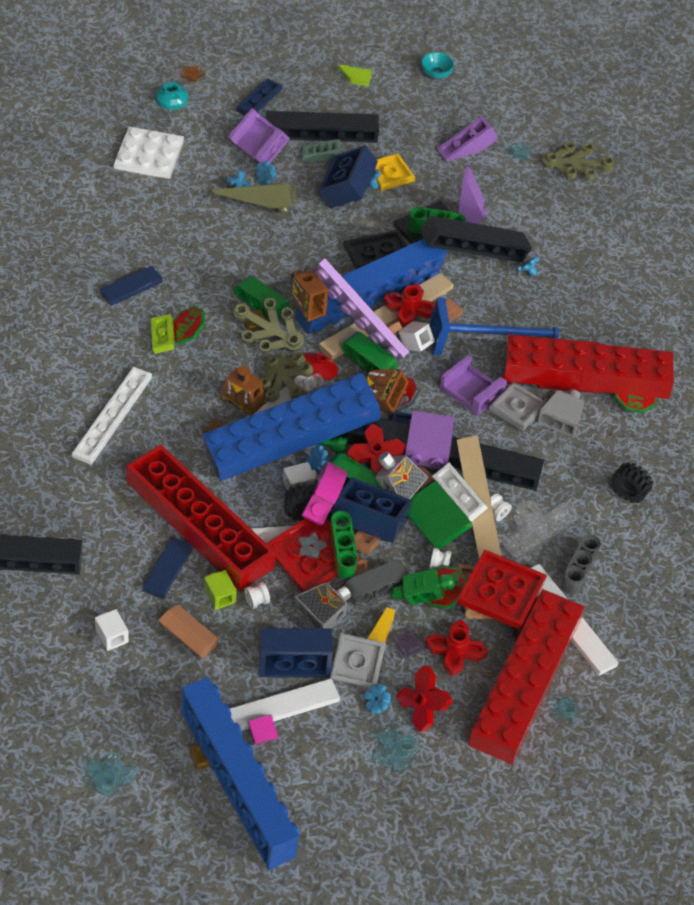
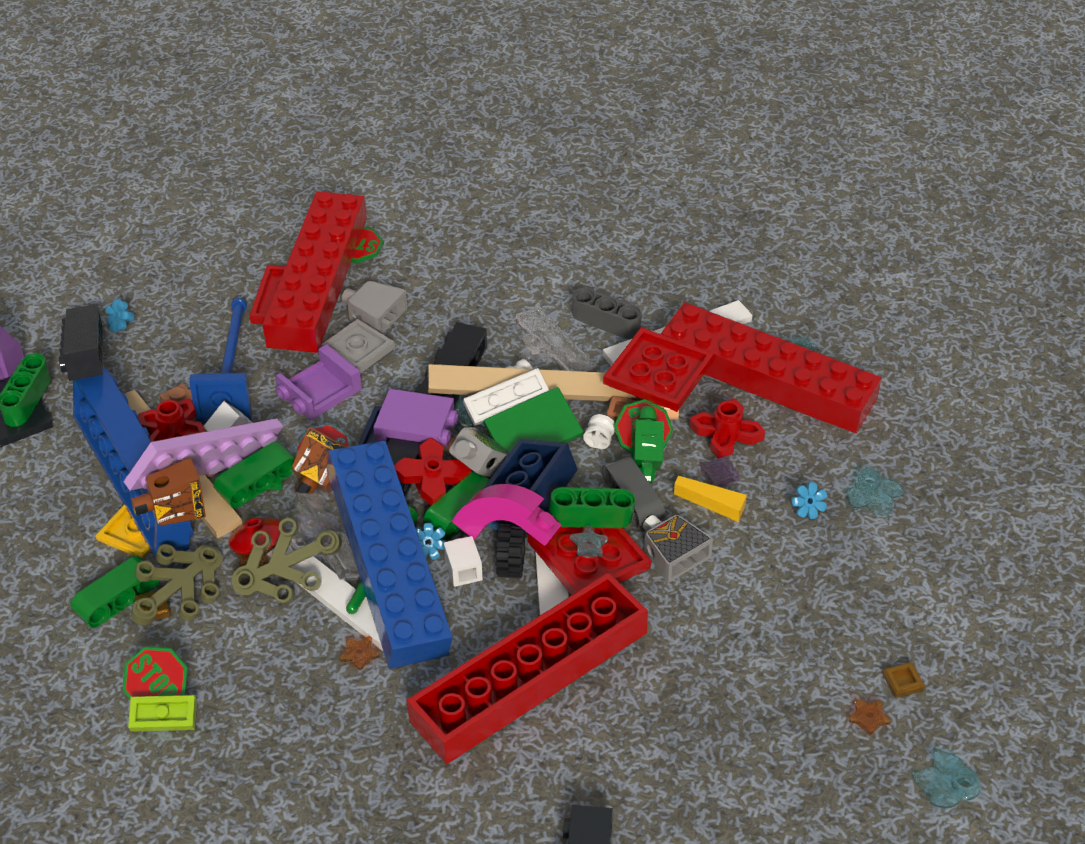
camera: 80 degrees left, 5 degrees down
(111, 415) = (314, 784): white tile -> none
(111, 629) = (719, 776): white brick -> none
(131, 285) = (45, 759): dark blue tile -> none
(167, 568) = (605, 715): dark blue tile -> none
(168, 733) = (867, 723): none -> clear orange plate
(189, 631) = (715, 689): nougat piece -> none
(220, 589) = (648, 651): lime brick -> none
(239, 773) = (944, 628): blue brick -> none
(243, 390) = (299, 613): dark orange torso -> none
(257, 595) = (659, 614): white wheel -> none
(262, 729) = (863, 614): dark pink tile -> none
(287, 703) = (830, 614): white tile -> none
(295, 652) = (757, 567): dark blue brick -> none
(357, 660) = (757, 515): light grey plate -> none
(373, 247) = (46, 464): black tile -> none
(424, 698) = (813, 452): red plant -> none
(631, 482) = (495, 256): black tyre -> none

